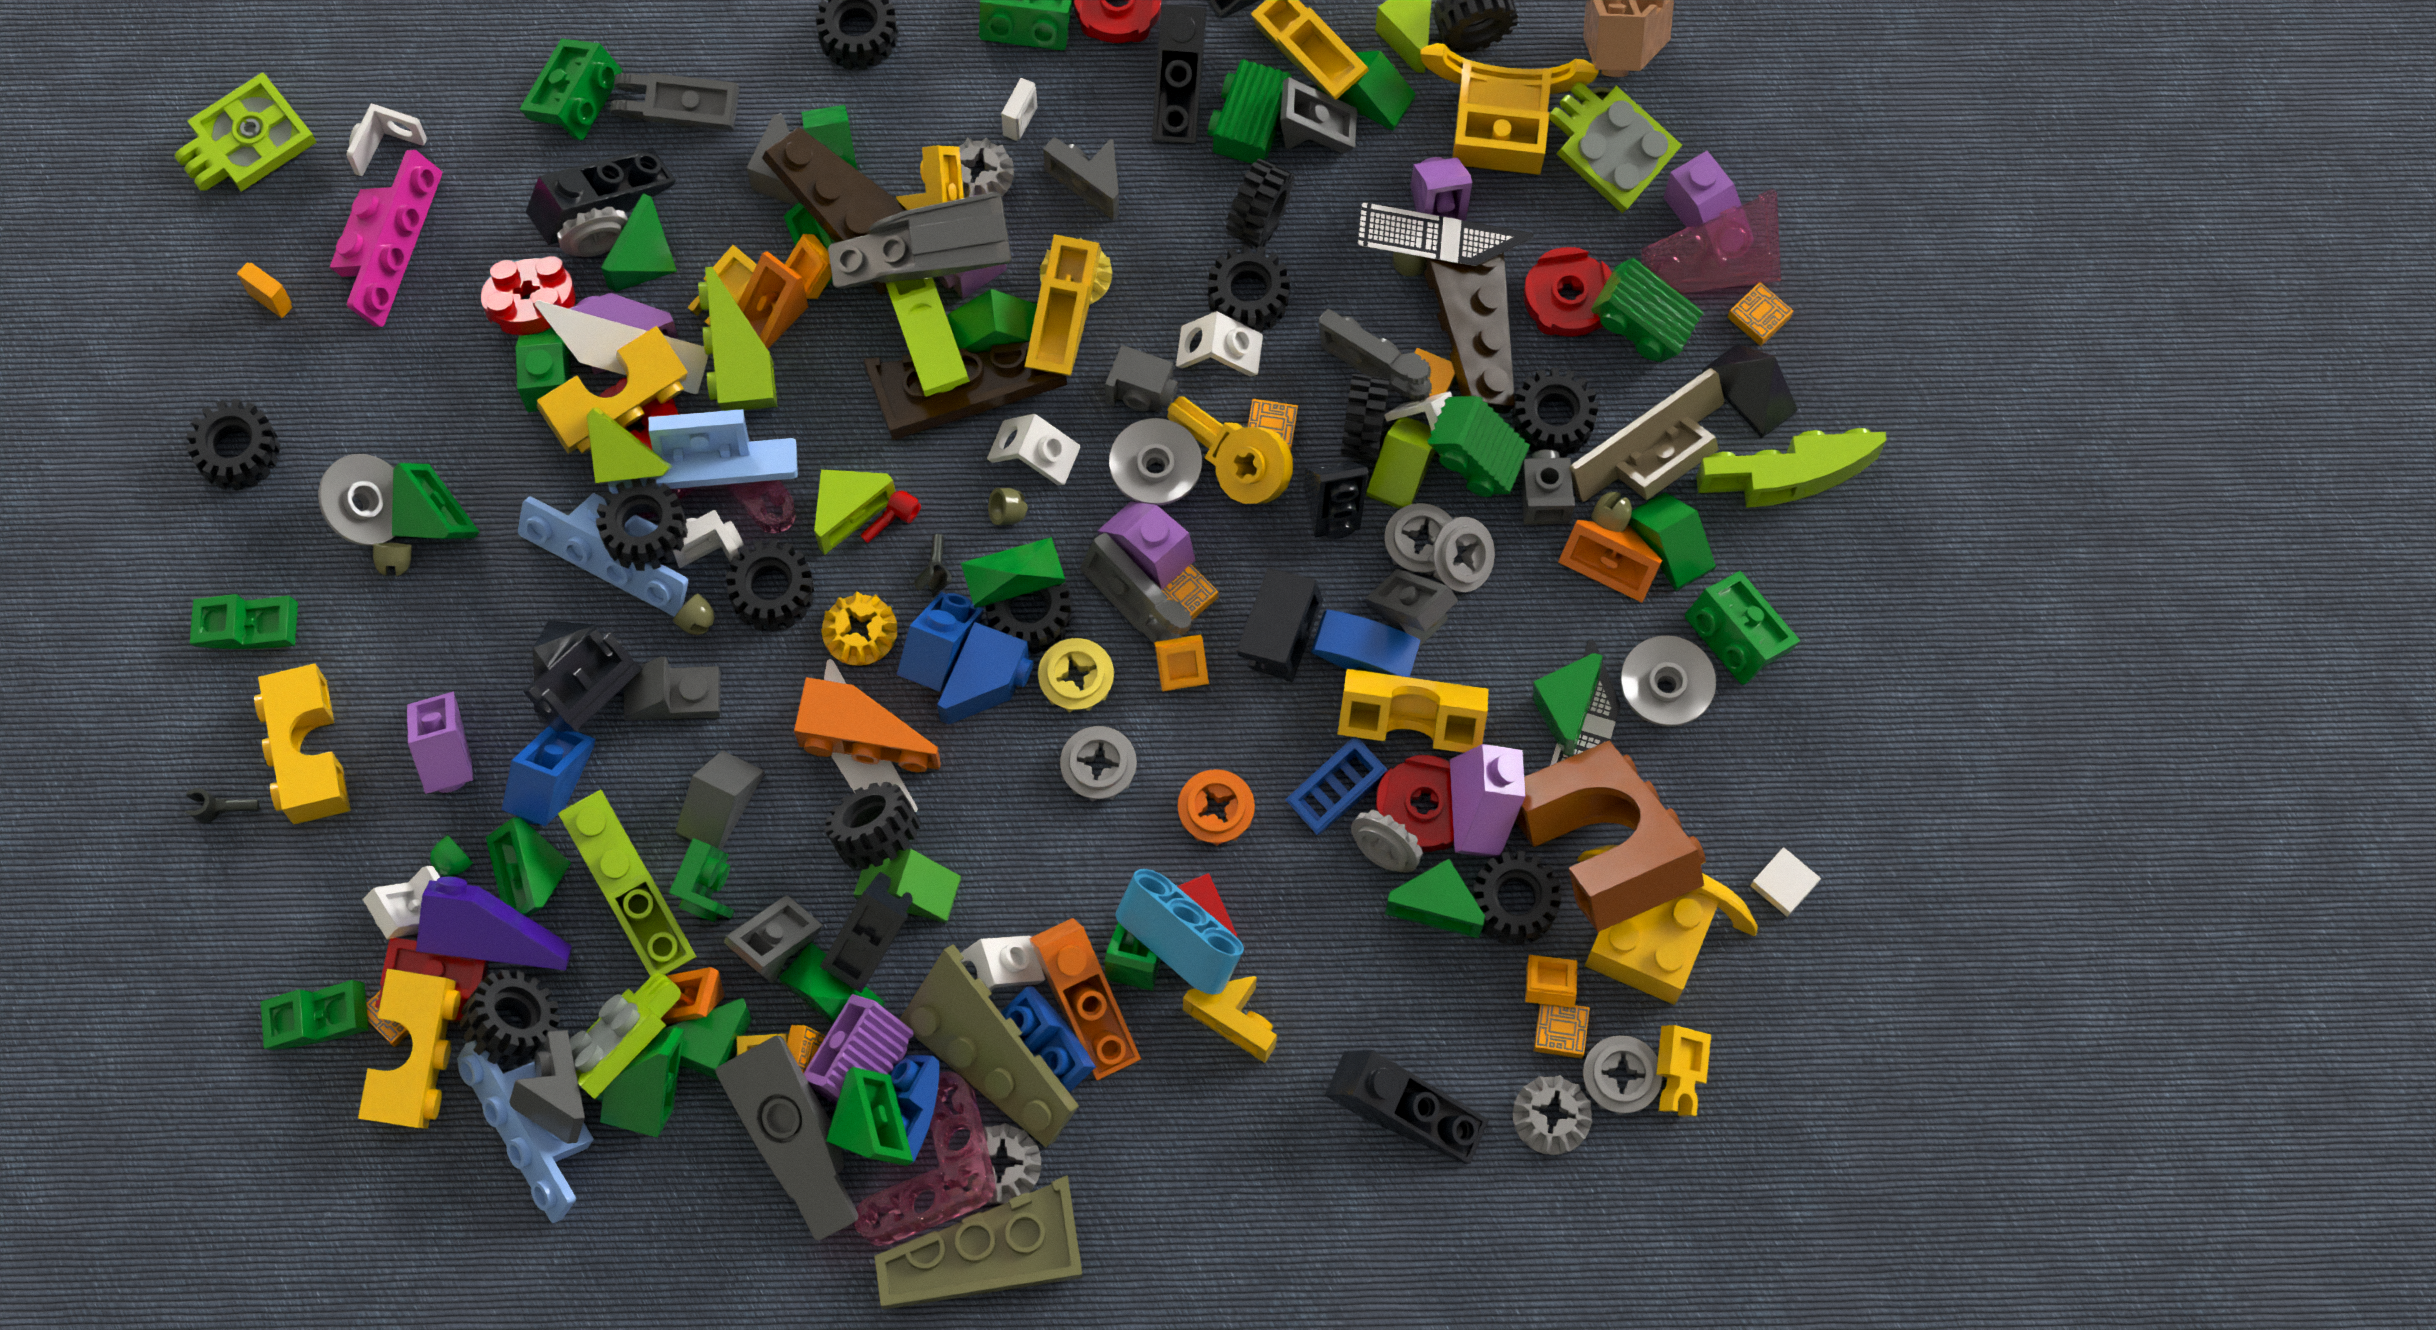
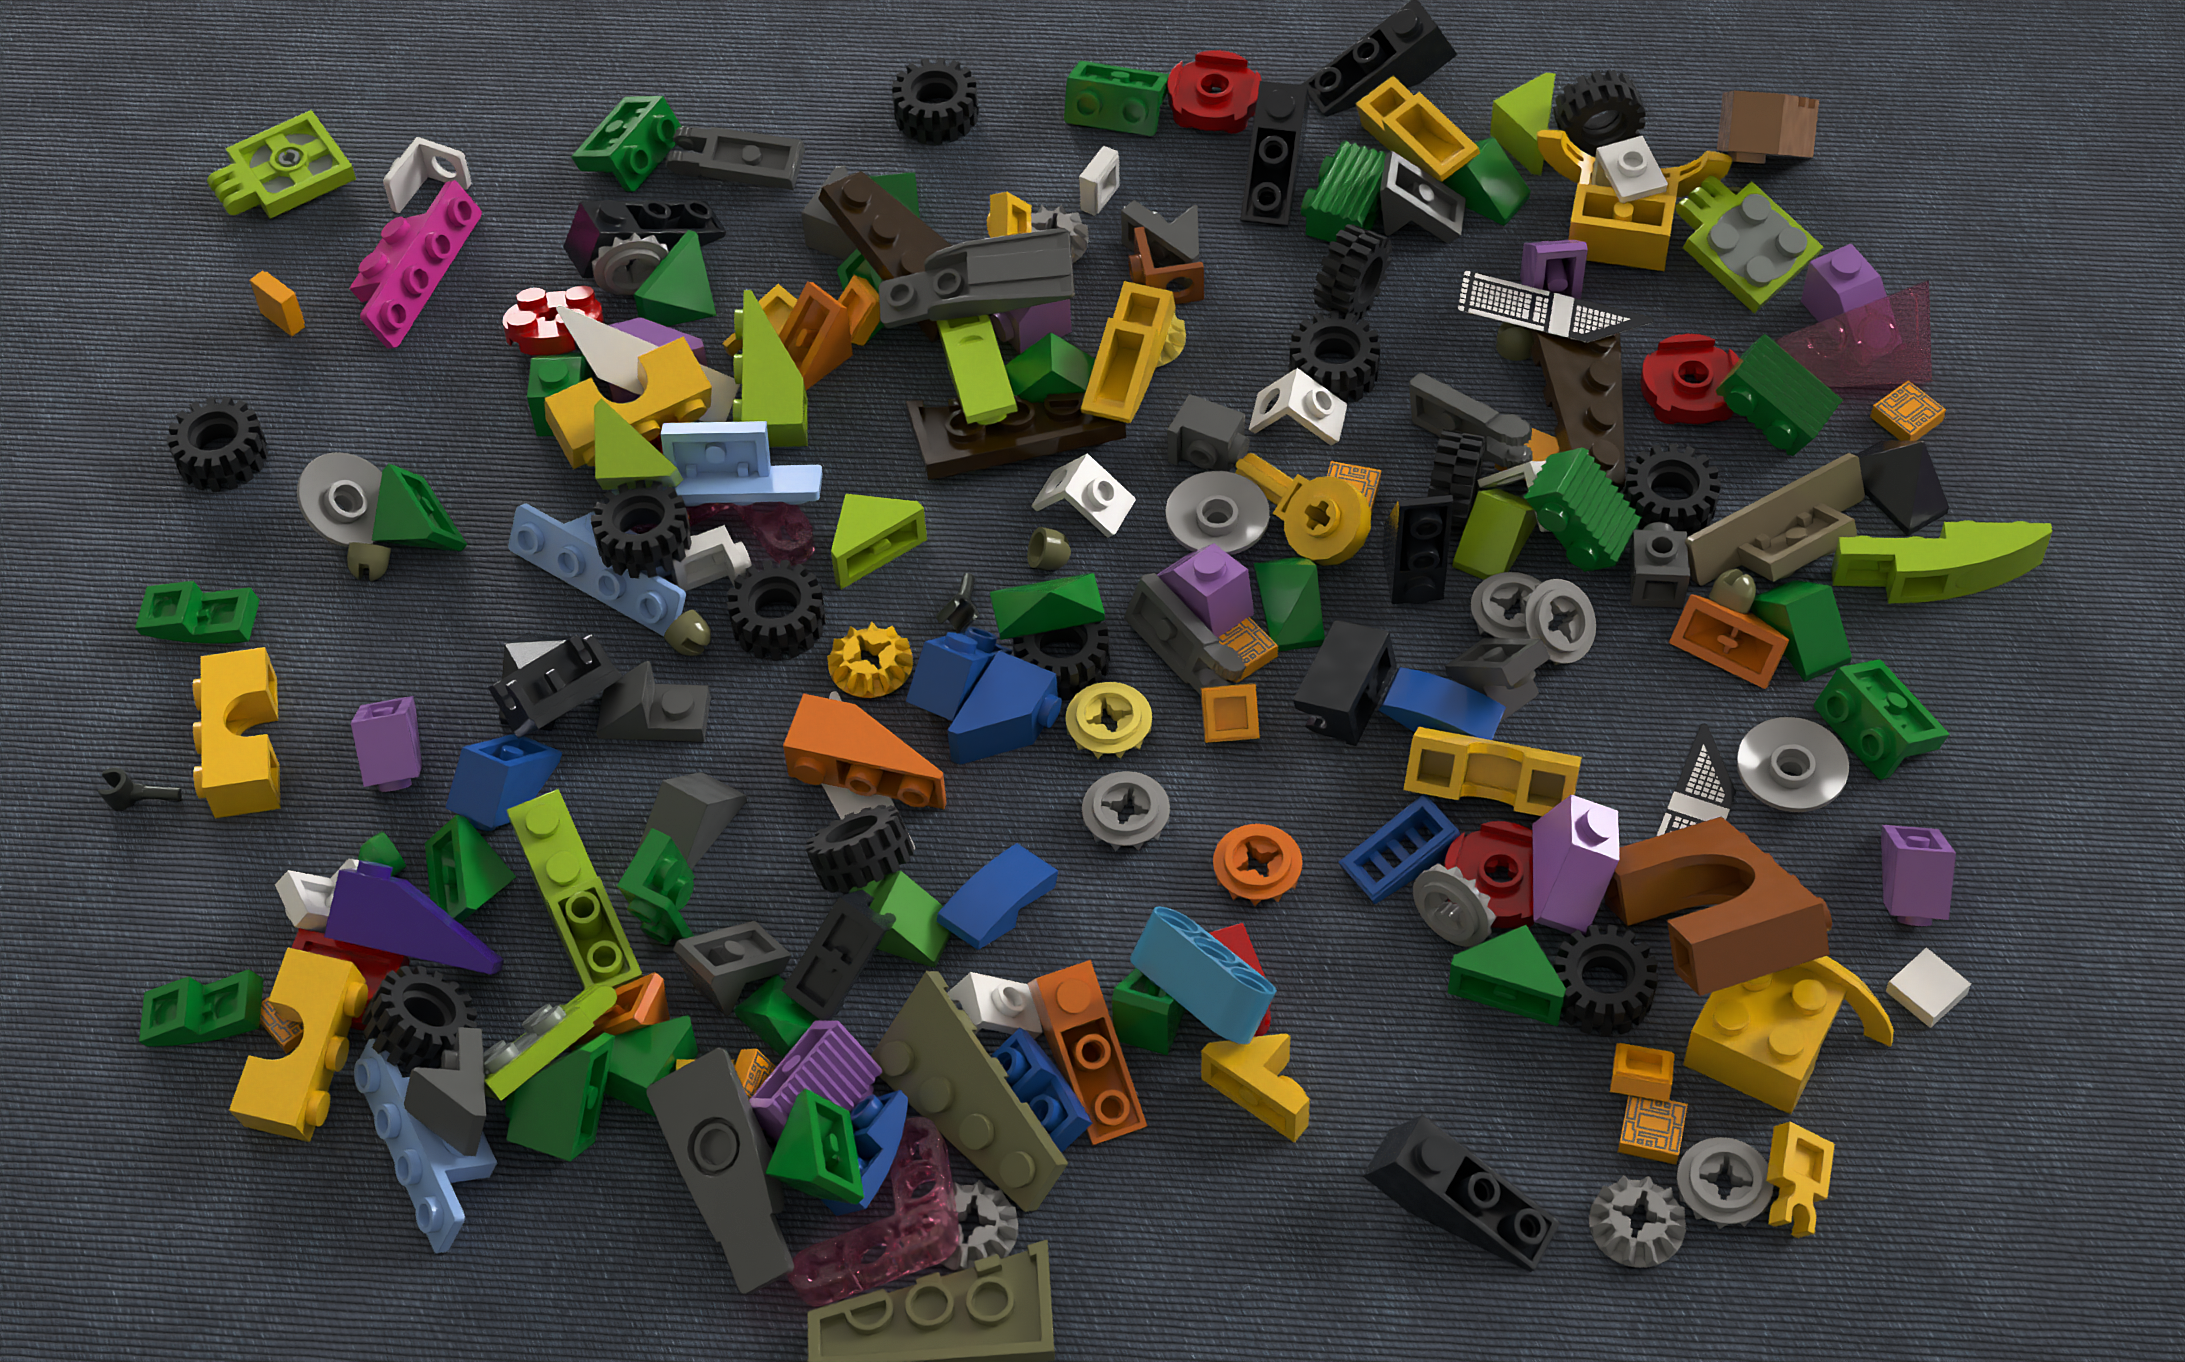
camera: 10 degrees right, 15 degrees down
(899, 505) = (929, 542): red hand -> none
(993, 857) = (991, 897): none -> blue slope
(1080, 221) = (1143, 271): none -> dark orange bracket
(1225, 543) = (1291, 602): none -> green slope
(1506, 86) = (1628, 169): none -> white bracket
(1566, 698) = (1673, 772): green slope -> none
(1774, 777) = (1916, 874): none -> medium lavender slope

